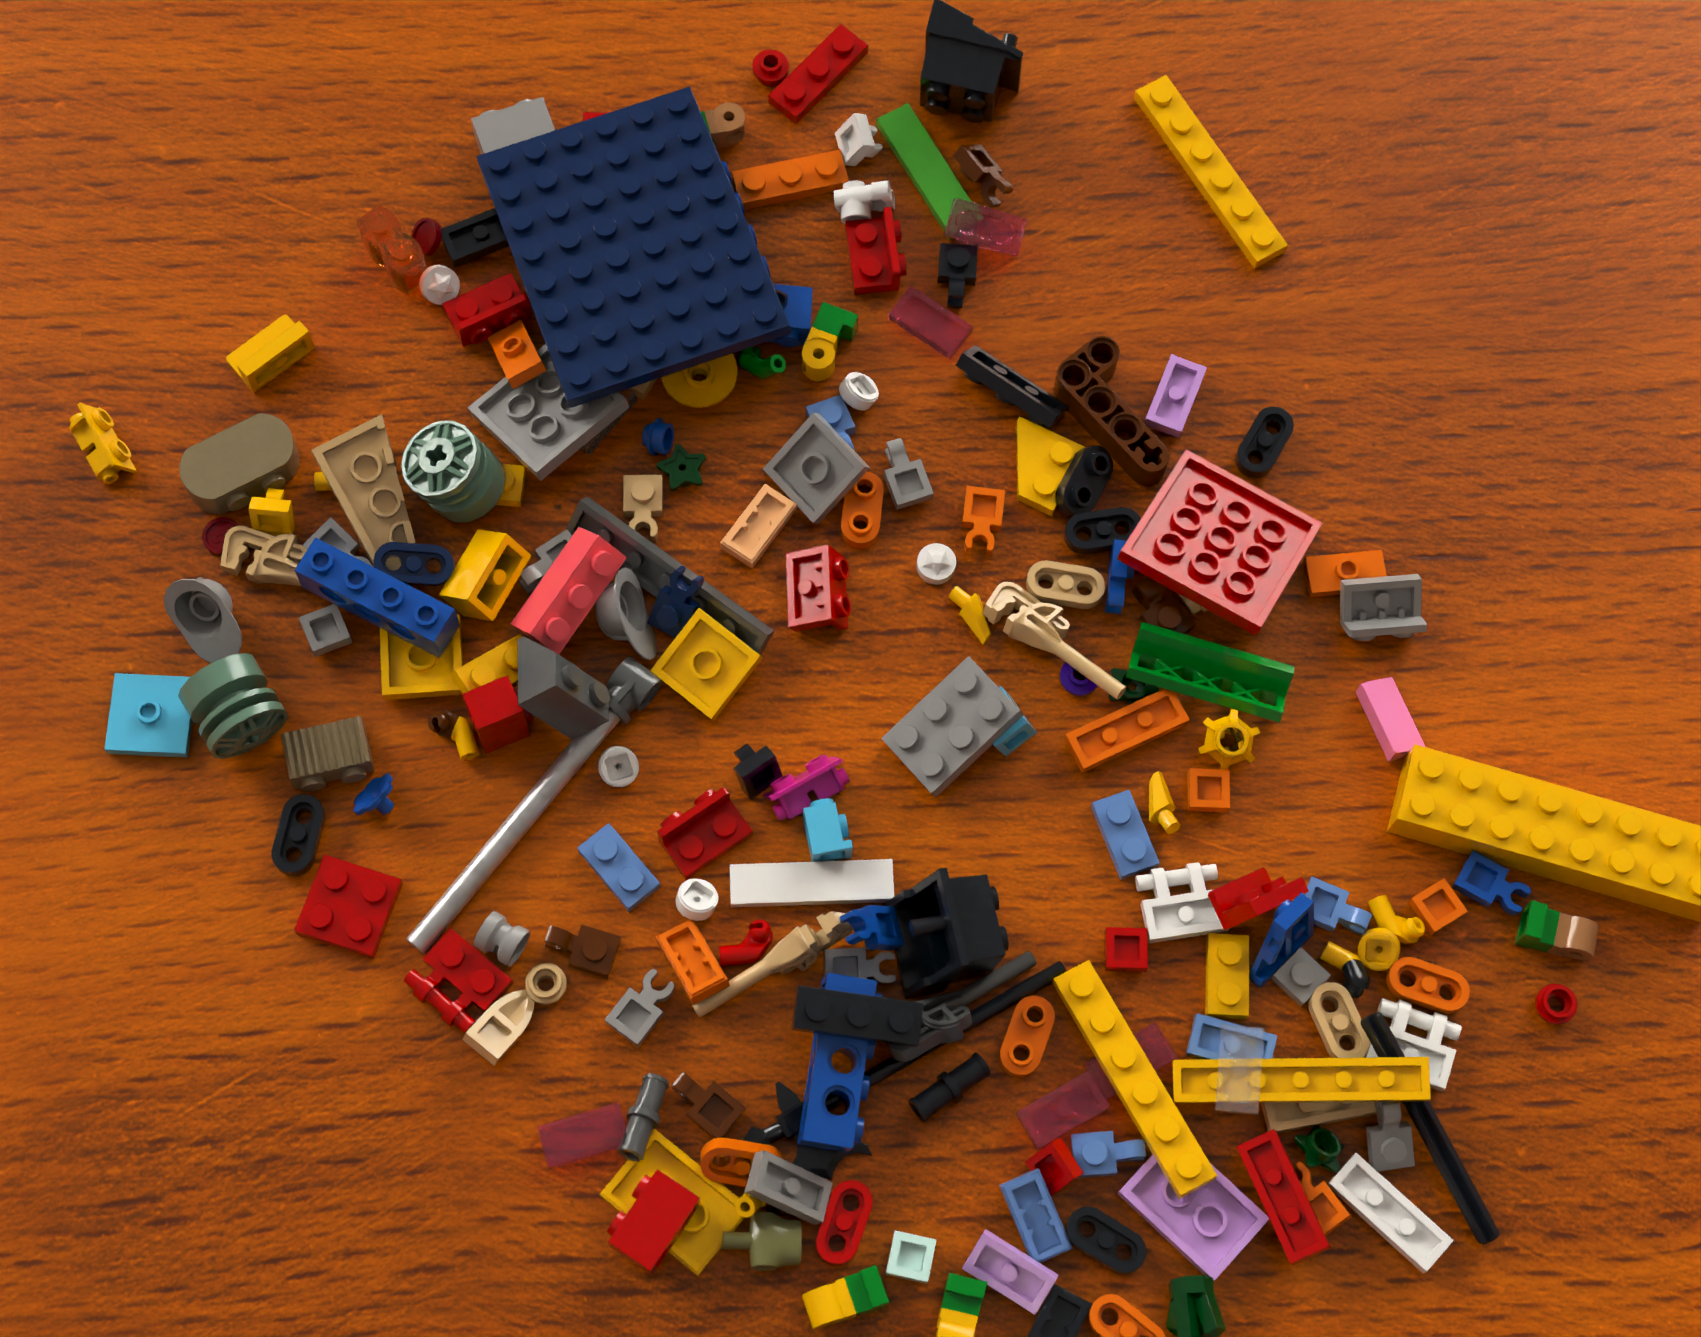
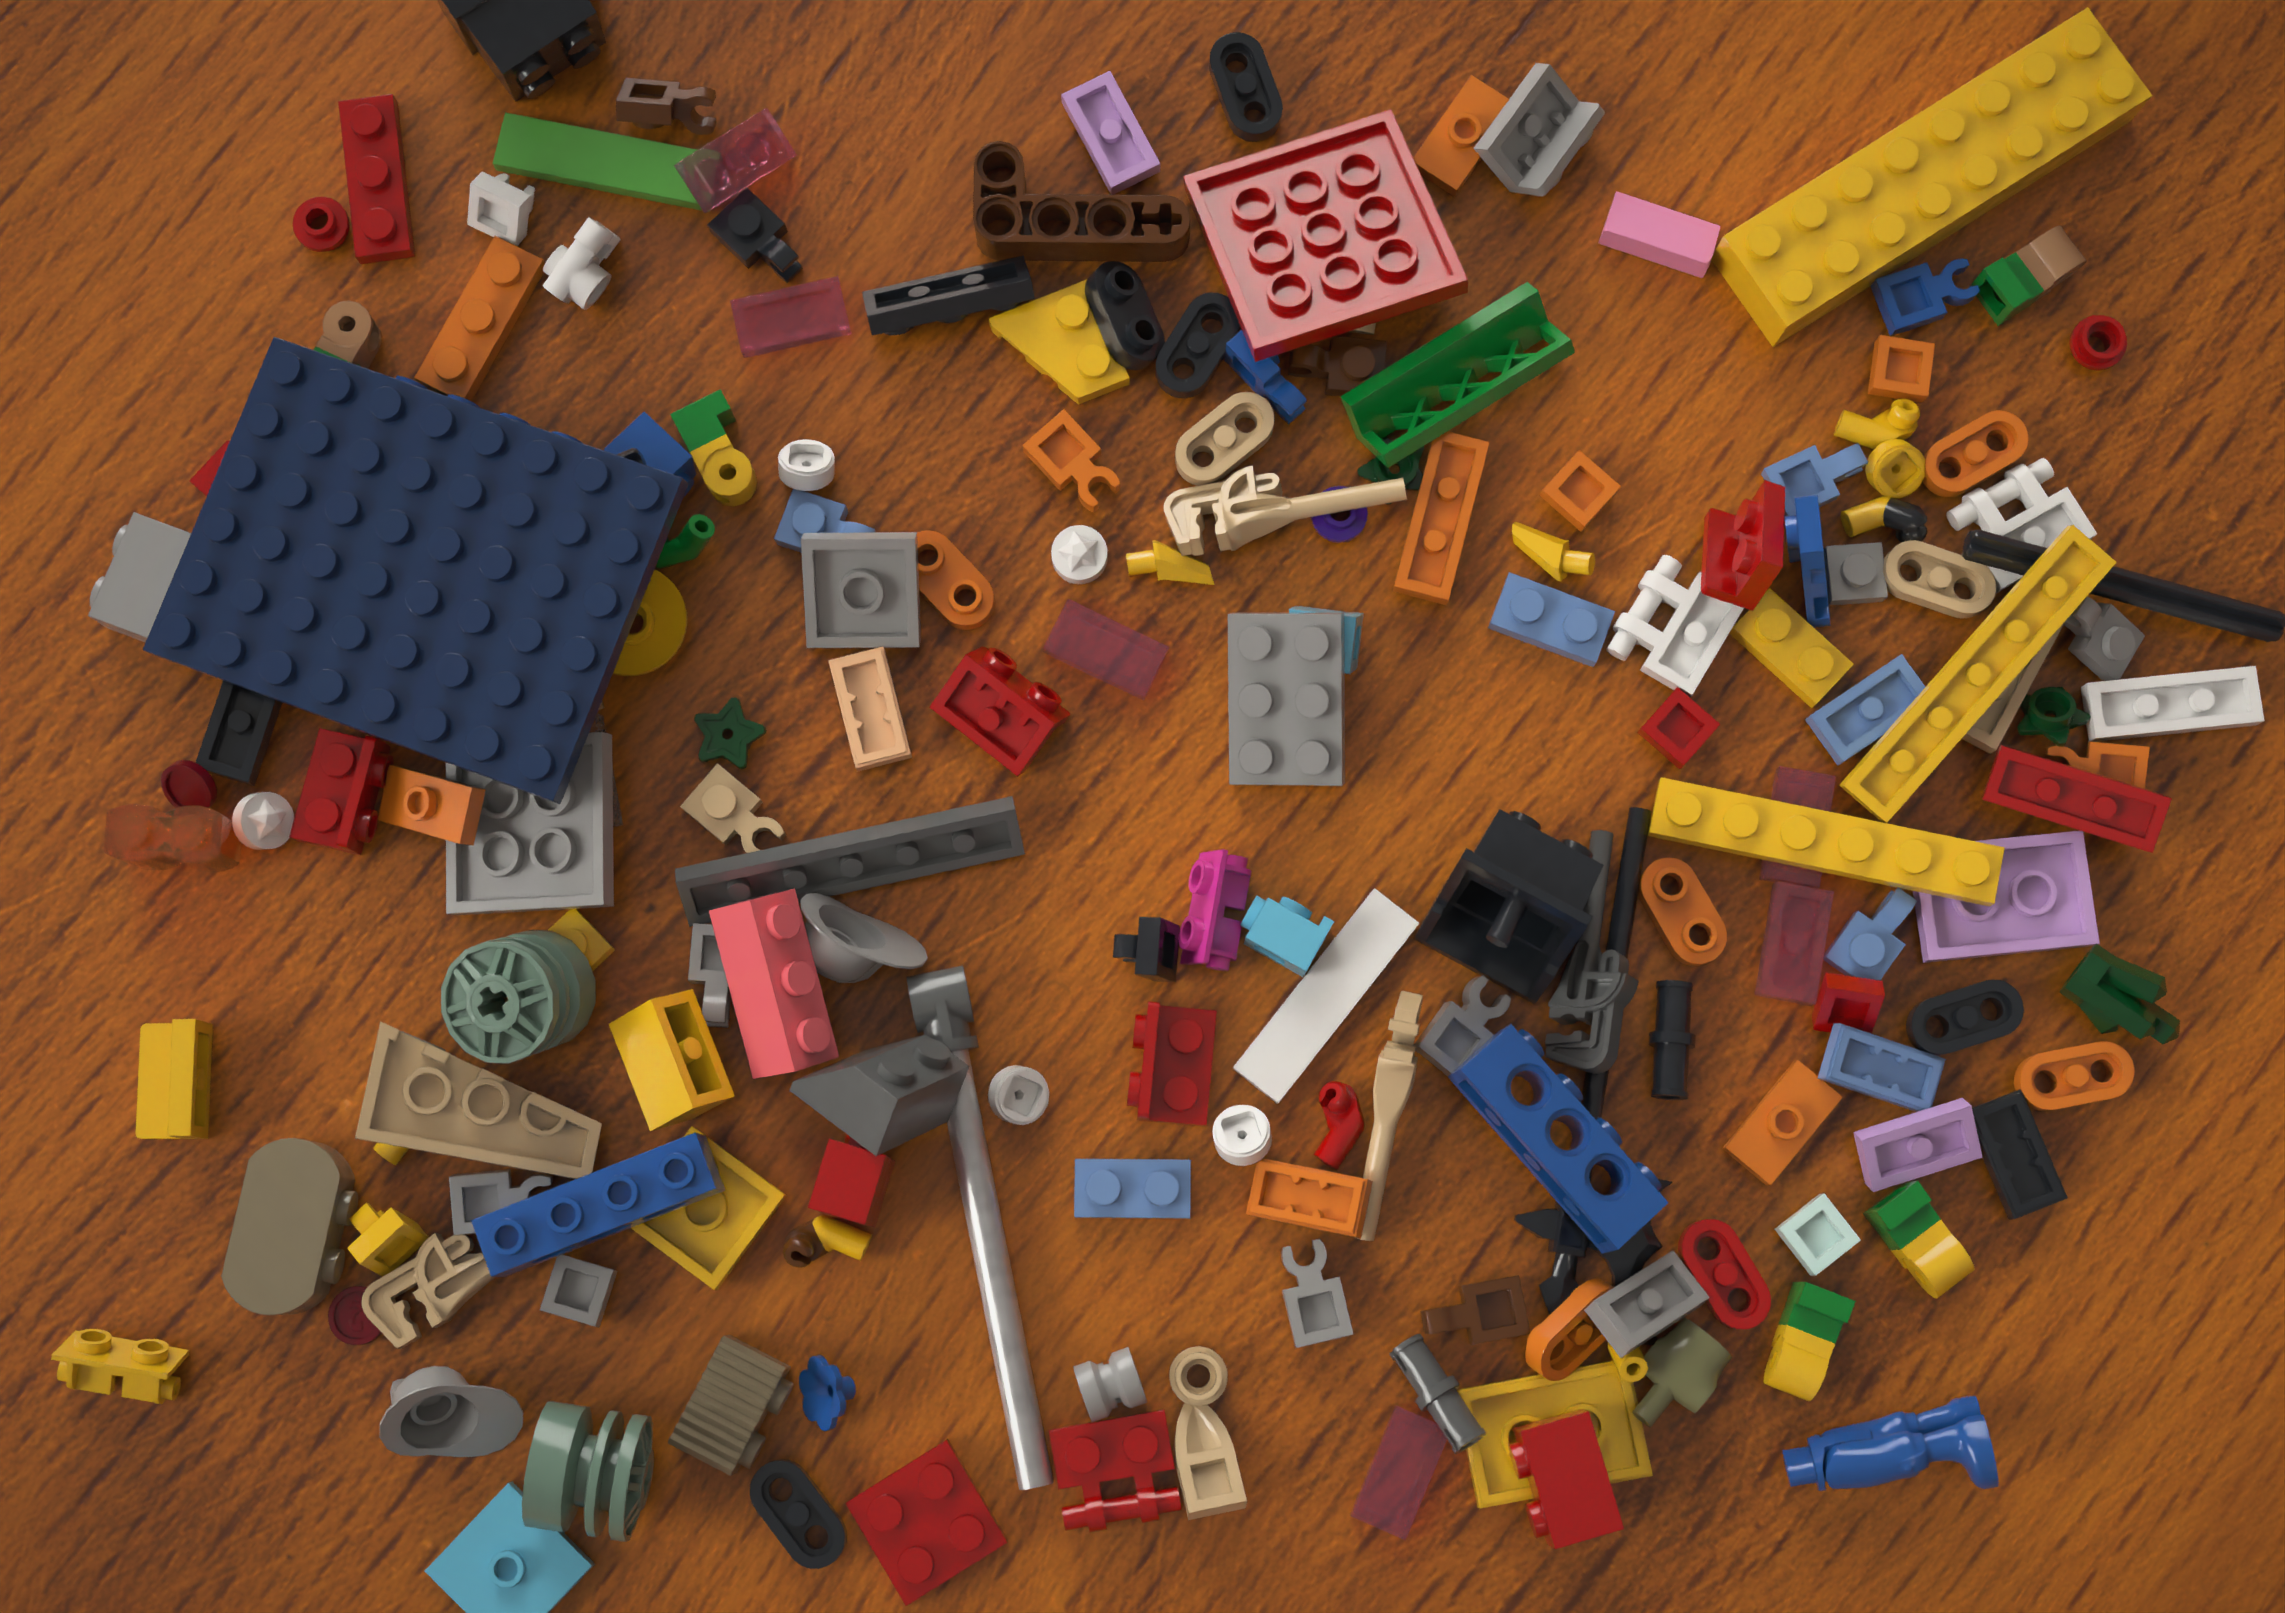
camera: 45 degrees left, 10 degrees up
(413, 562) = (590, 1131): dark blue plate -> none
(489, 667) = (790, 1144): yellow plate -> none
(590, 950) = (1200, 1296): reddish brown plate -> none
(658, 437) = (668, 730): blue plate -> none
(674, 604) = (890, 878): dark blue plate -> none
(706, 664) = (985, 901): yellow plate -> none
(857, 1016) = (1536, 1079): black plate -> none
(874, 253) = (656, 306): red bracket -> none
(875, 926) = (1442, 974): blue plate -> none
(897, 618) = (1105, 649): none -> clear pink tile
(906, 479) = (958, 503): light grey plate -> none
(957, 1188) = (1782, 1122): none -> orange plate
(1239, 730) = (1533, 431): yellow rock -> none
(1239, 1069) = (1921, 728): clear plate -> none

